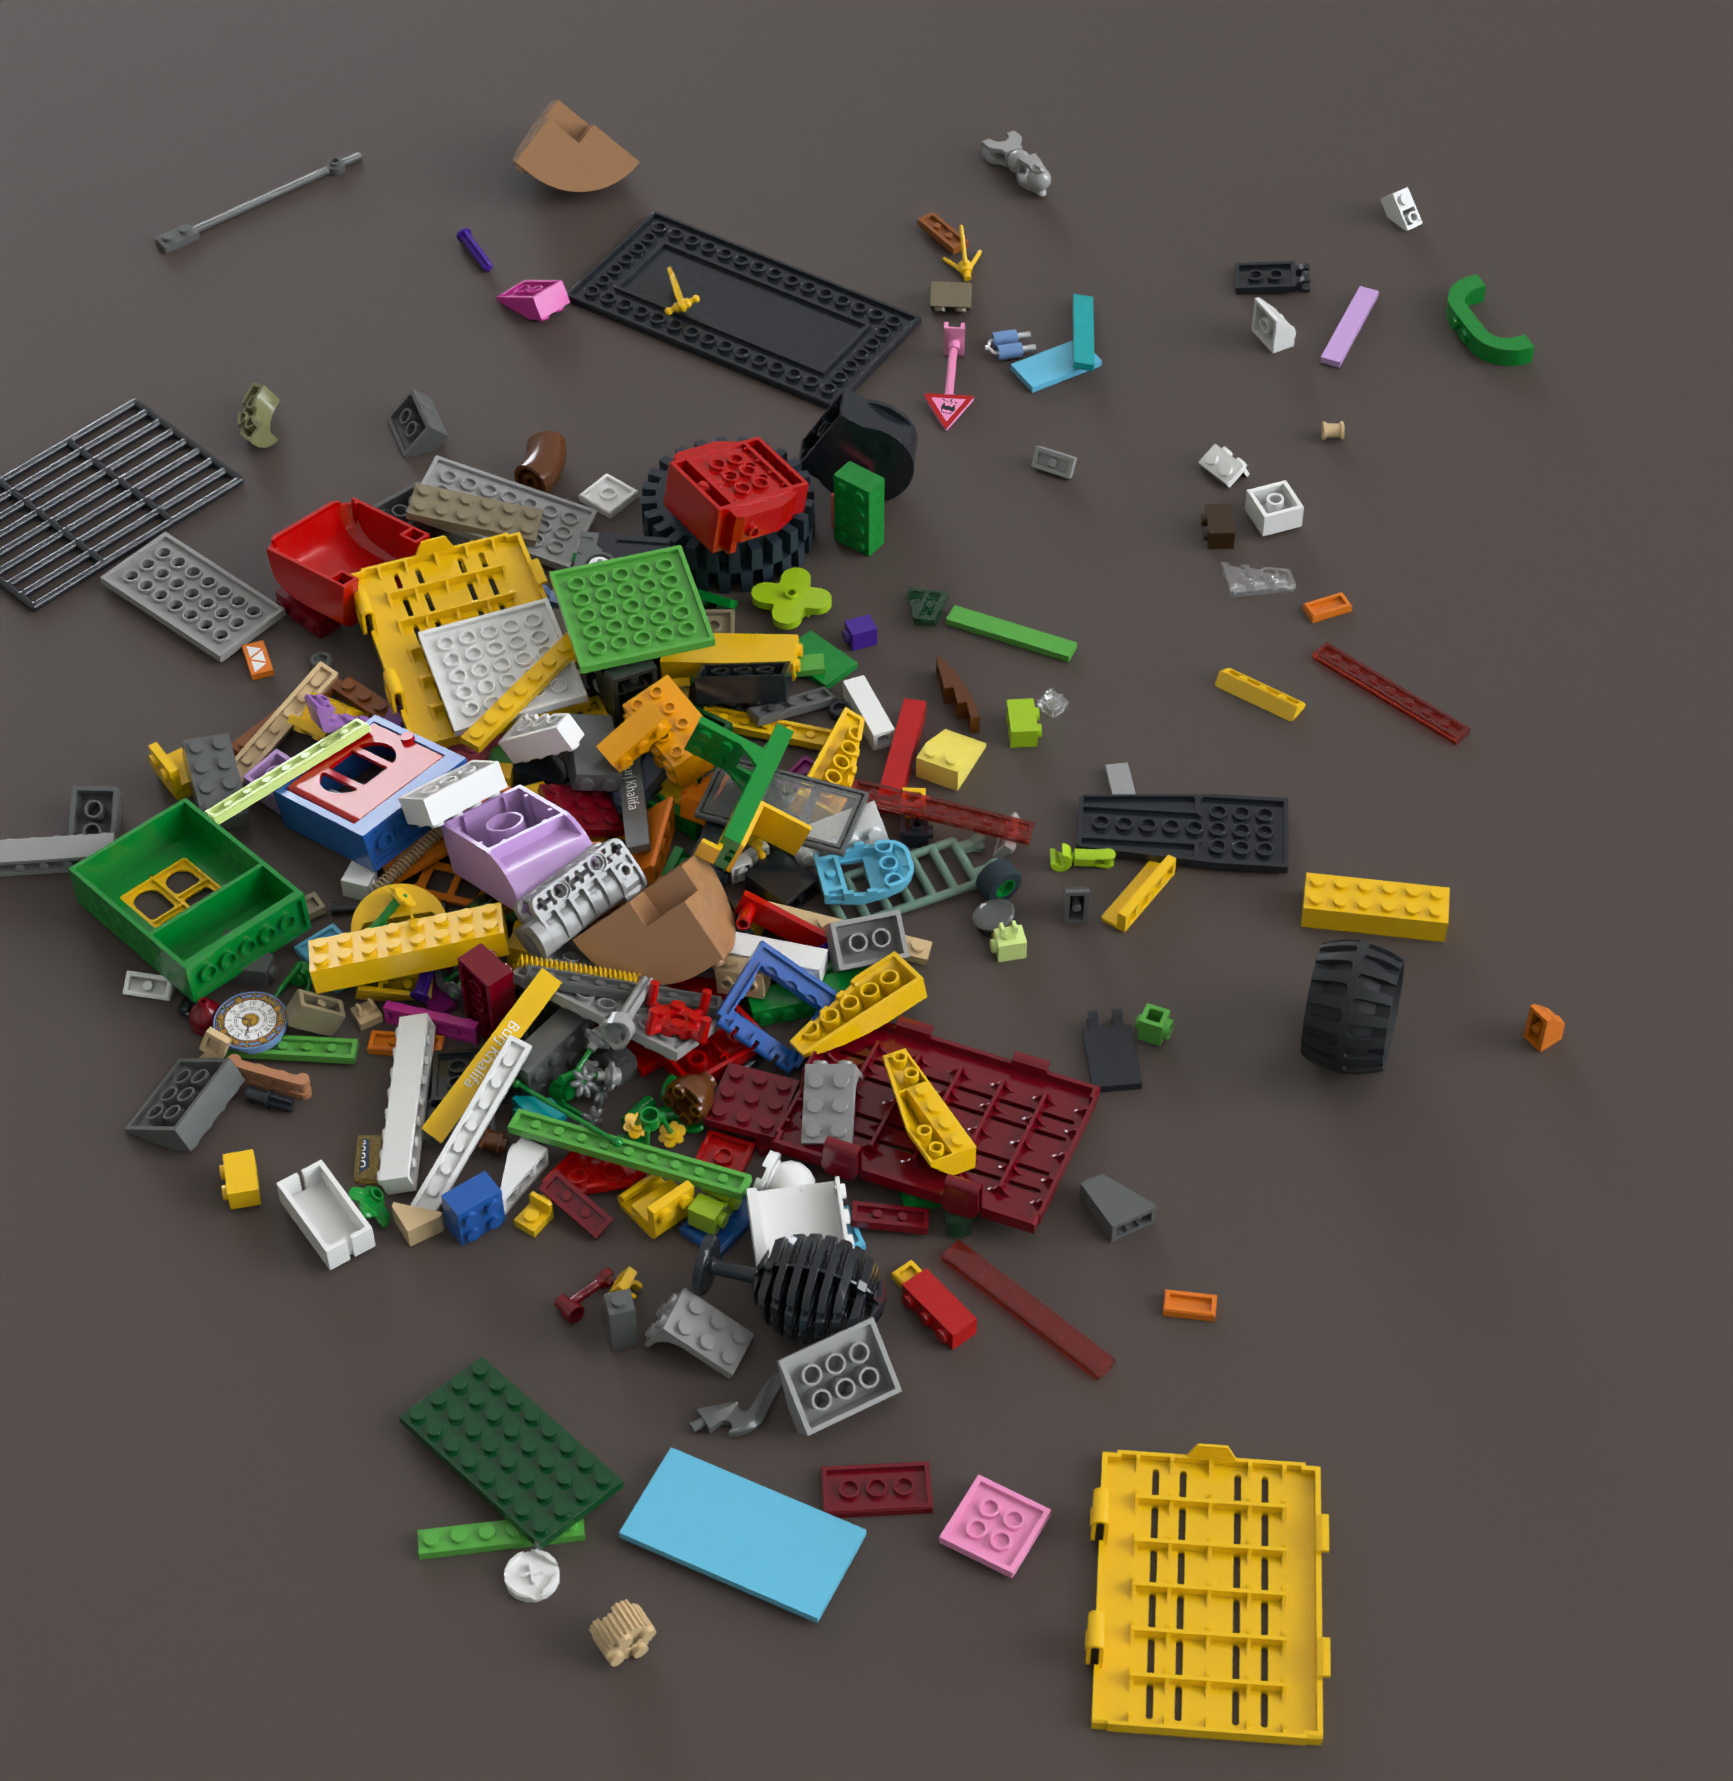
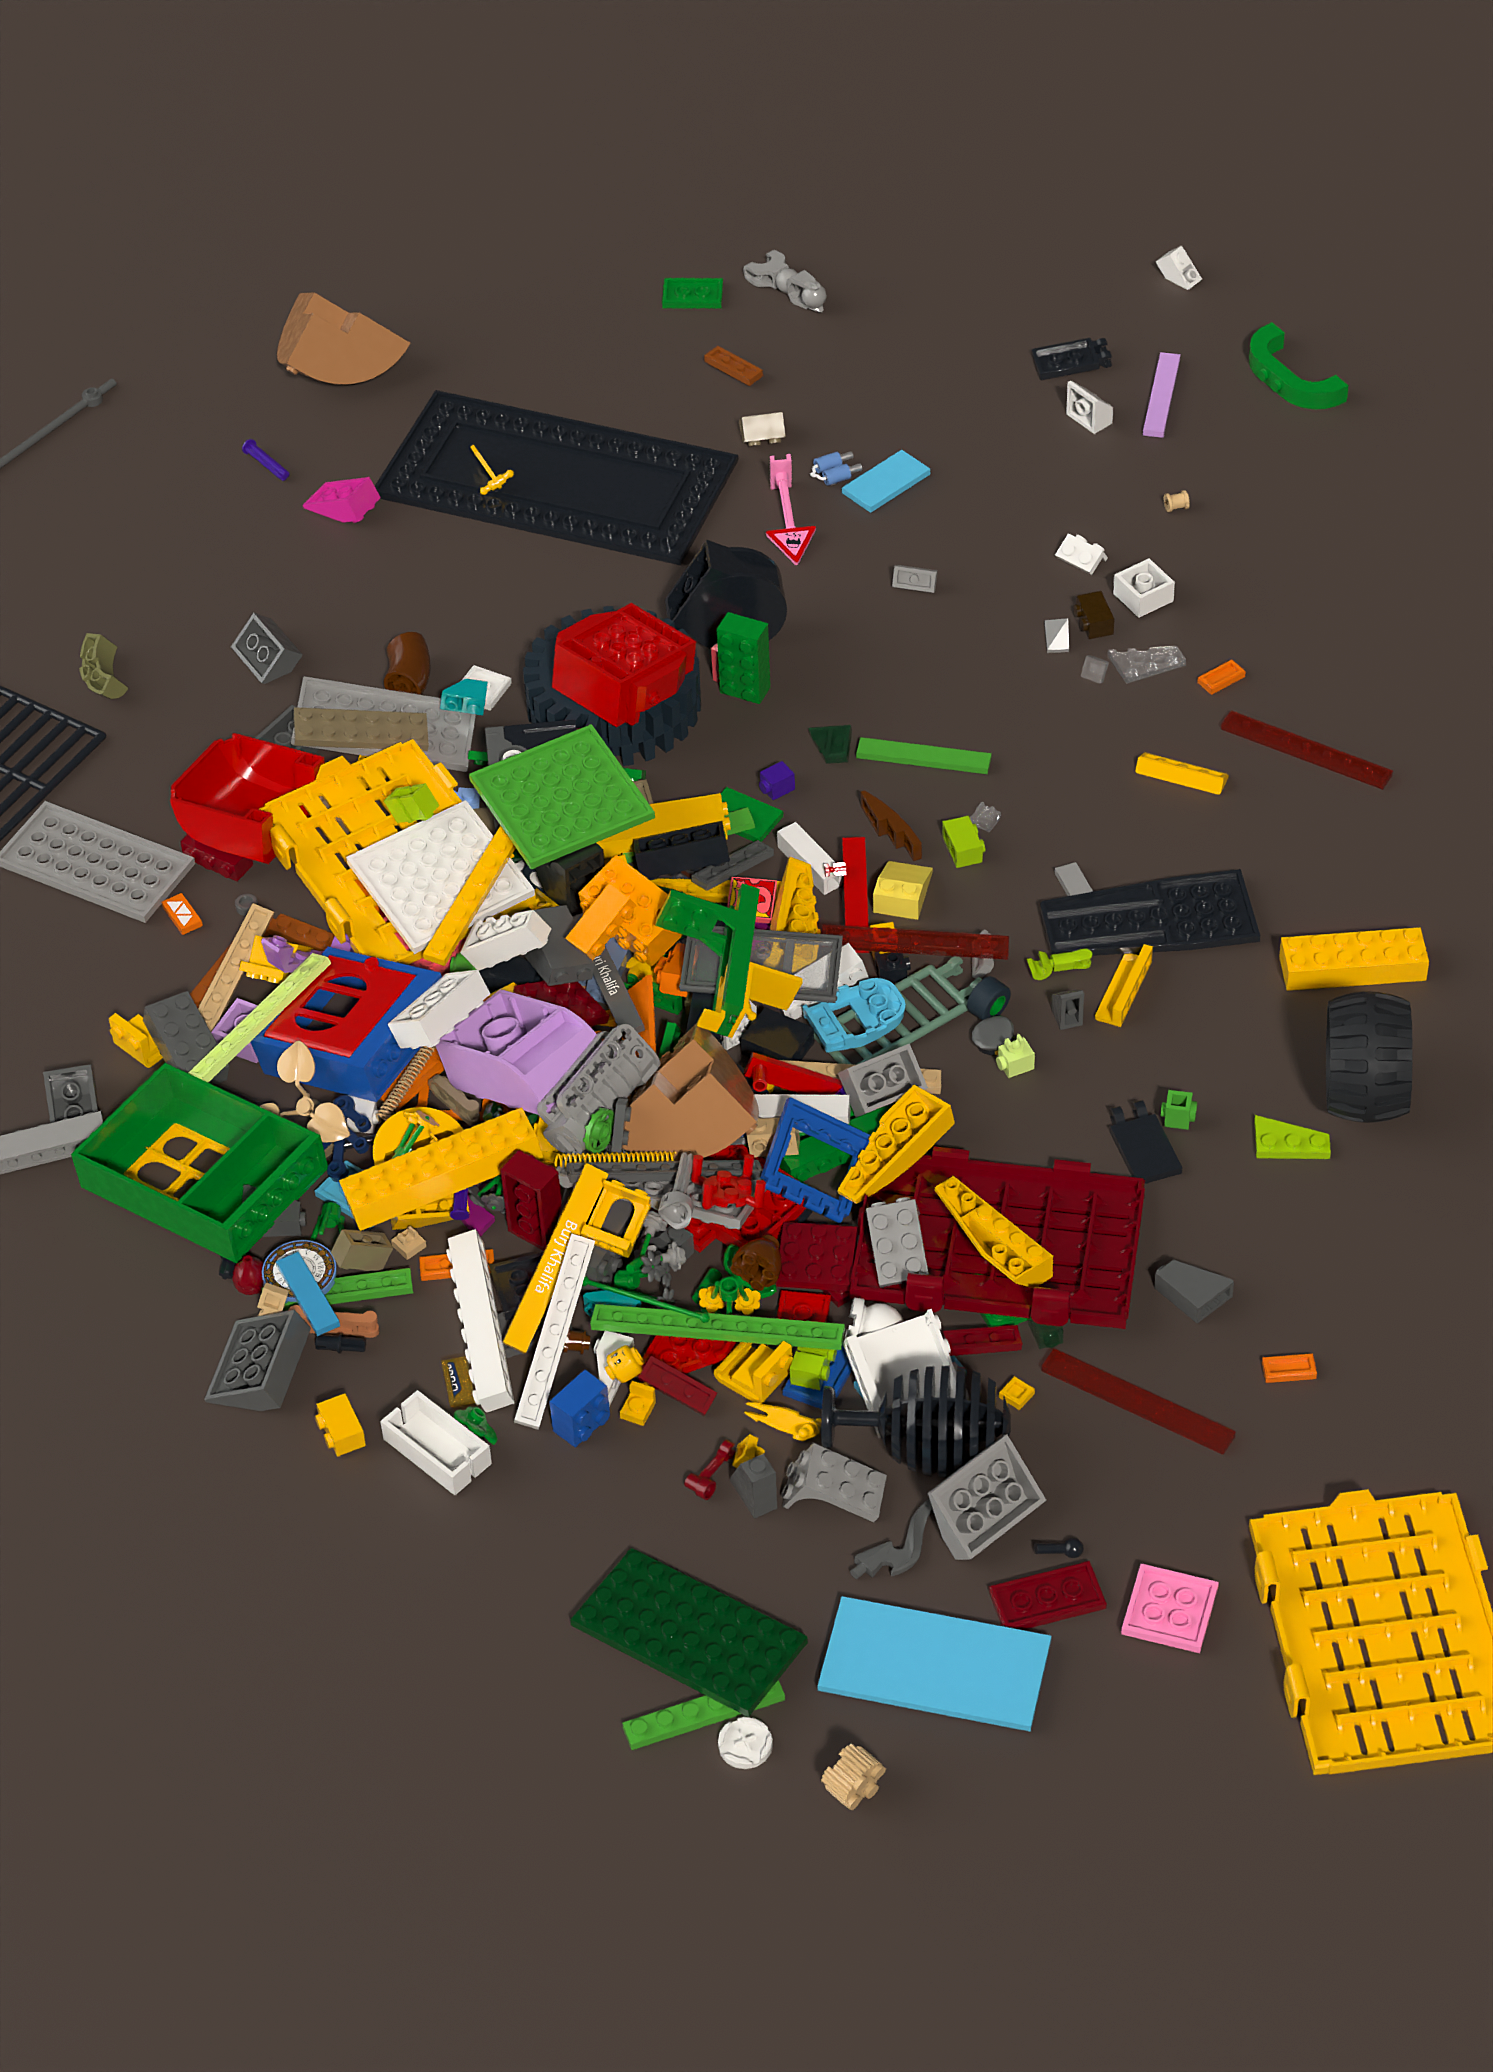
camera: 10 degrees left, 0 degrees up
(148, 986) = (181, 1255): white slope -> none
(249, 1045) = (307, 1293): none -> dark azure tile
(321, 879) = (327, 1119): none -> tan plant
(340, 873) = (338, 1154): none -> dark blue plant
(417, 1223) = (525, 1433): tan slope -> none
(446, 1024) = (494, 1238): dark pink plate -> none
(452, 883) = (455, 1100): none -> dark tan plate
(493, 592) = (411, 803): none -> lime piece
(527, 1172) = (624, 1364): none -> yellow head
(560, 1002) = (612, 1192): none -> yellow panel
(568, 938) = (599, 1130): none -> bright green wheel
(586, 501) = (465, 697): none -> teal slope
(592, 927) = (622, 1115): none -> dark grey plate
(669, 1258) = (786, 1420): none -> yellow piece
(791, 598) = (698, 759): lime plant -> none
(804, 743) = (766, 896): none -> tile
(836, 709) = (778, 861): black tile -> none
(889, 727) = (838, 869): none -> piece
(915, 1444) = (1071, 1548): none -> black bar
(926, 159) = (692, 293): none -> green tile
(938, 1309) = (1055, 1417): red brick -> none
(964, 266) = (765, 396): yellow plant -> none
(1083, 332) = (904, 443): teal tile -> none
(1176, 540) = (1057, 635): none -> light grey slope
(1203, 578) = (1094, 669): none -> clear tile
(1257, 1077) = (1288, 1141): none -> lime wing

